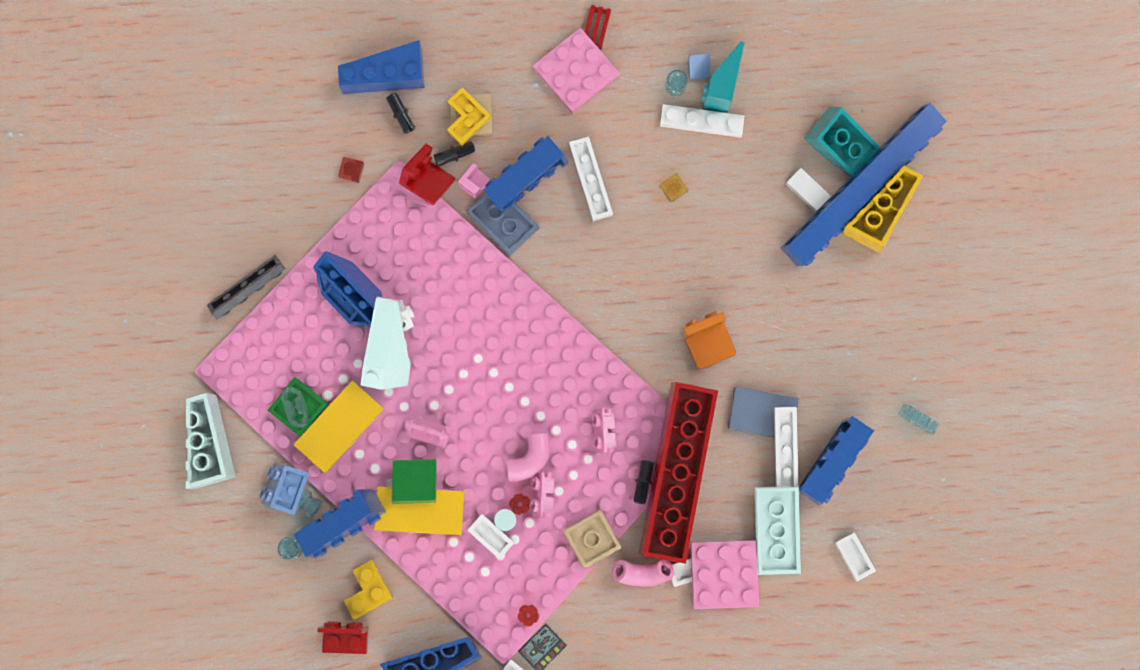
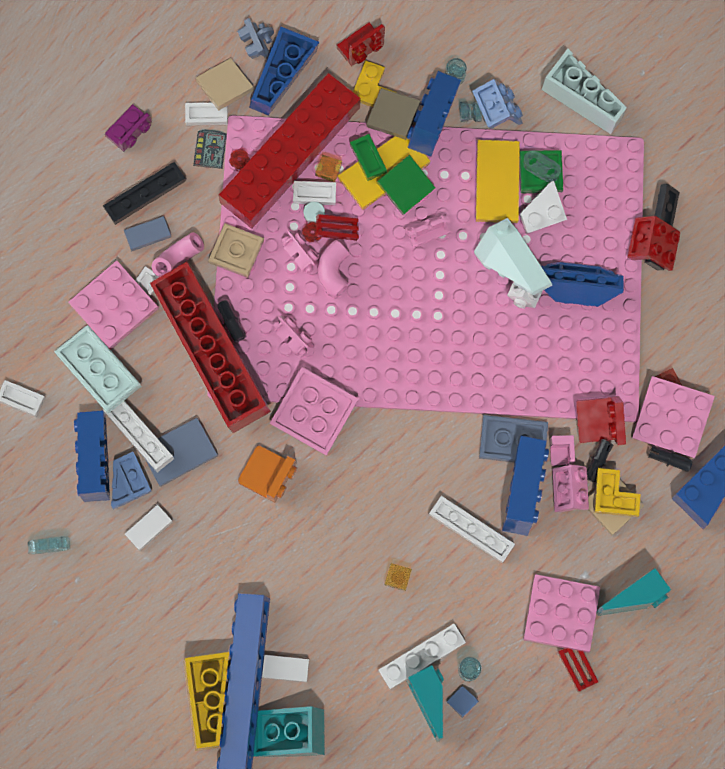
camera: 140 degrees right, 5 degrees down
(264, 279) = (654, 241): none -> red bracket
(324, 372) = (543, 210): none -> white wing
(371, 139) = (673, 417): none -> bright pink plate
(372, 550) = (393, 113): none -> dark tan tile
(424, 529) = (368, 157): none -> green tile
(463, 547) = (328, 168): none -> clear yellow plate
(481, 587) = (289, 150): none -> red brick
(485, 480) = (337, 219): none -> red tile
(493, 149) = (570, 488): none -> bright pink bracket
(514, 34) = (642, 594): none -> teal slope
(626, 651) = (144, 193): none -> black plate
(636, 358) = (314, 411): none -> bright pink plate
(650, 614) = (147, 233): none -> sand blue tile
(819, 421) = (127, 481): none -> medium blue wing
(830, 373) = (148, 528): none -> white tile

